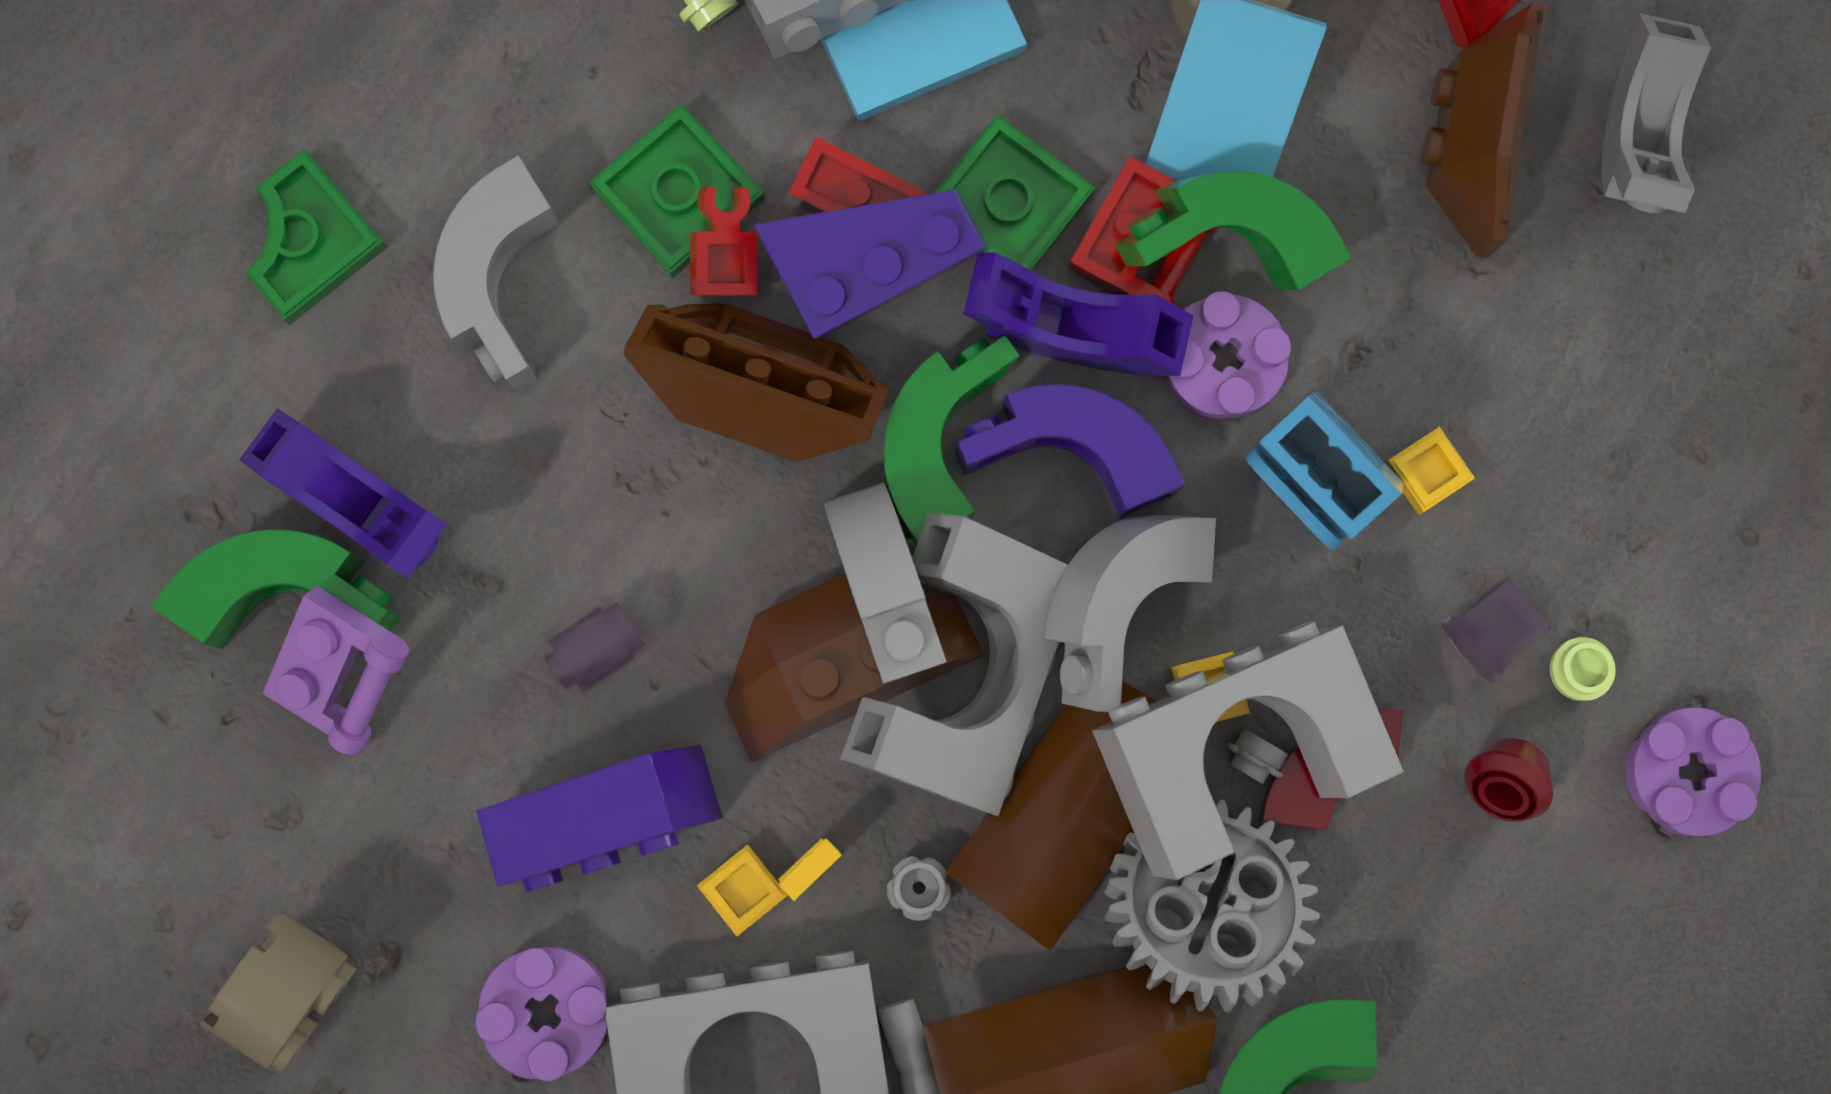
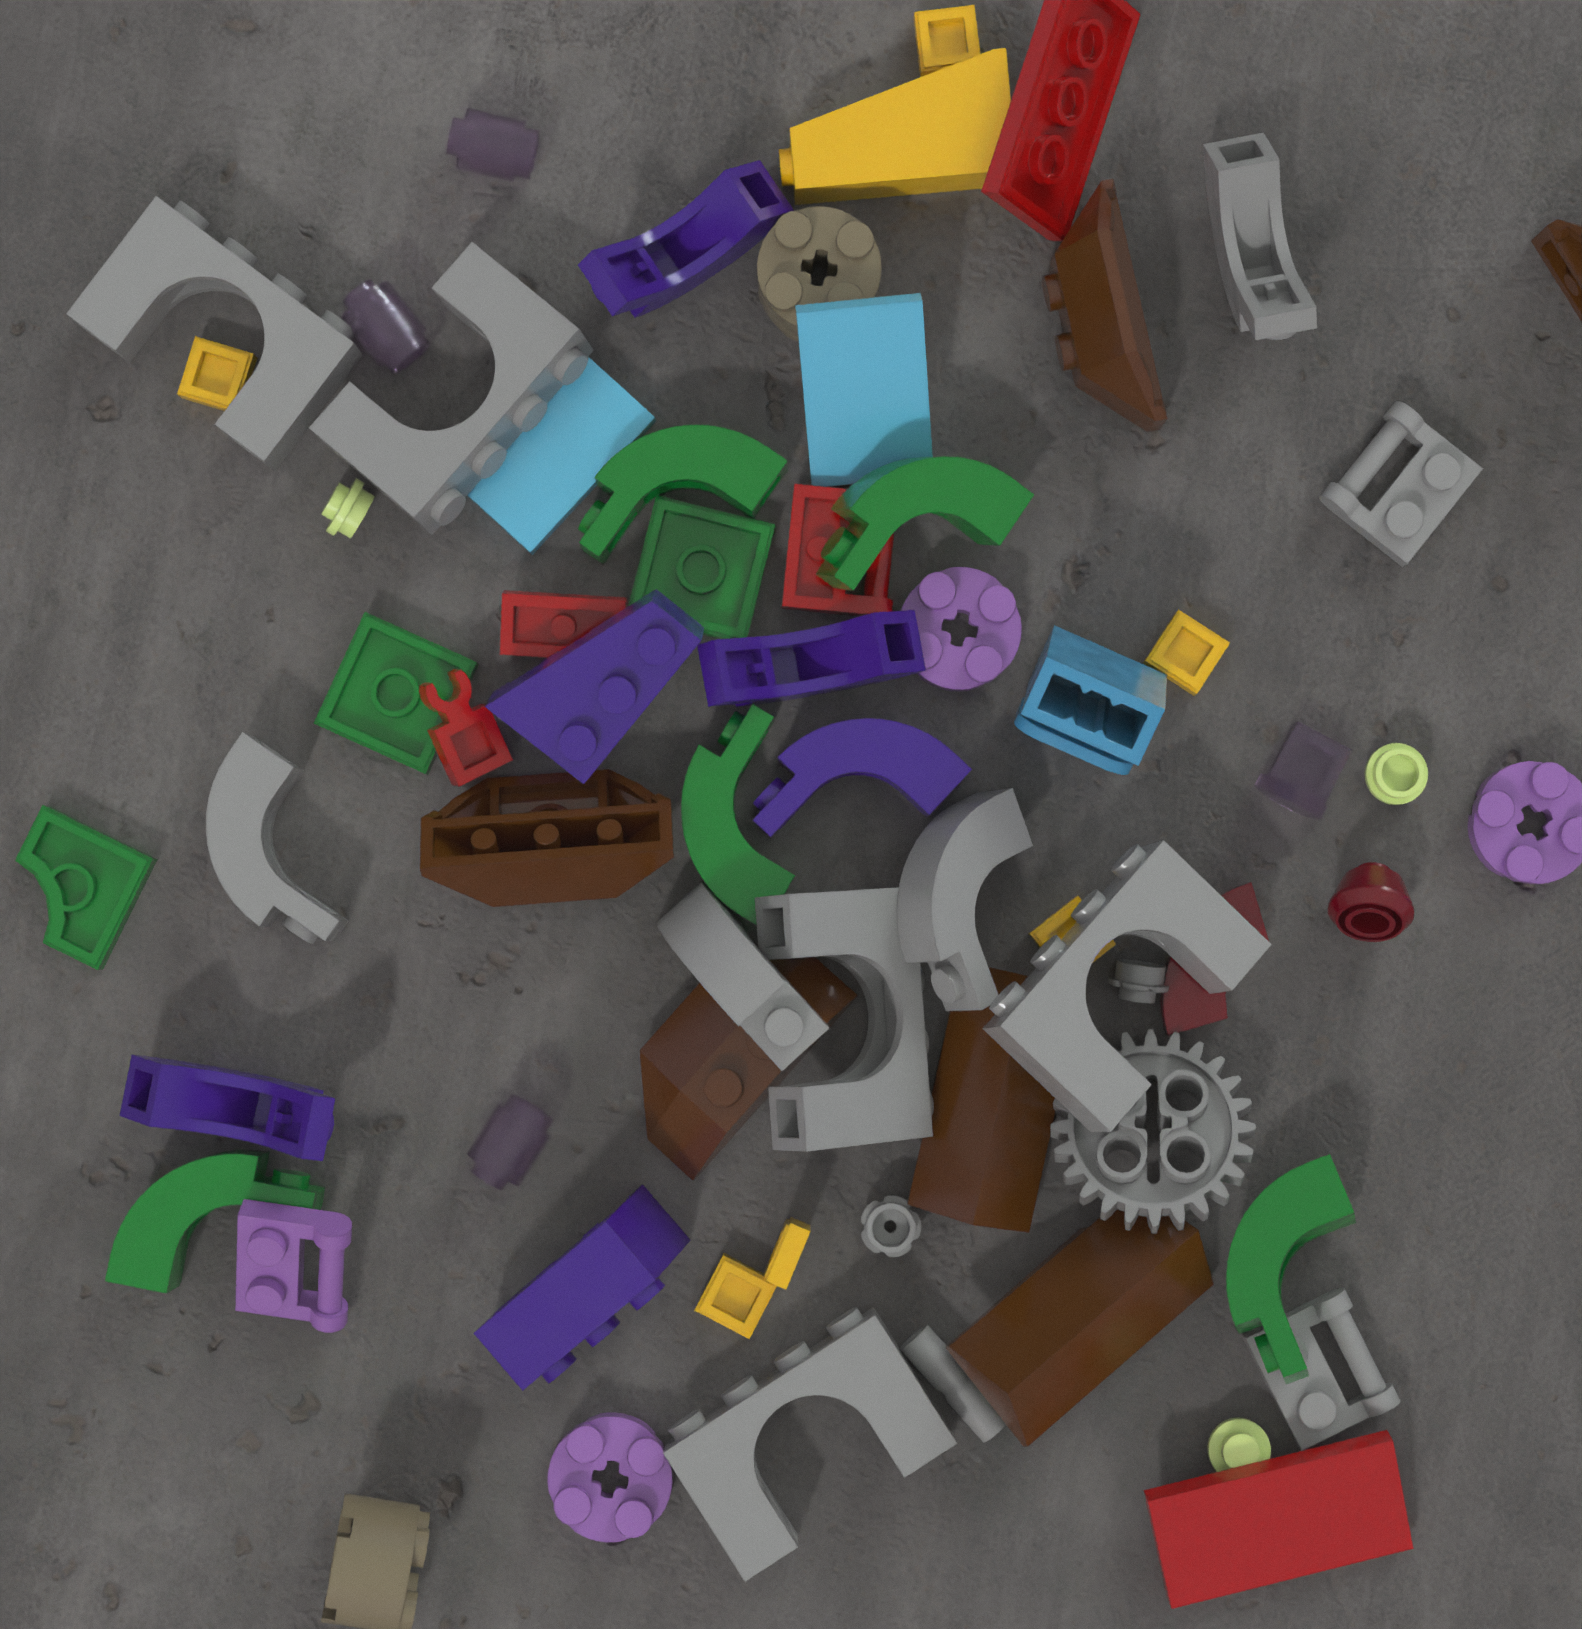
camera: 15 degrees left, 5 degrees up
(1029, 89) = (679, 459): none -> green arch
(1704, 421) = (1418, 494): none -> light grey plate

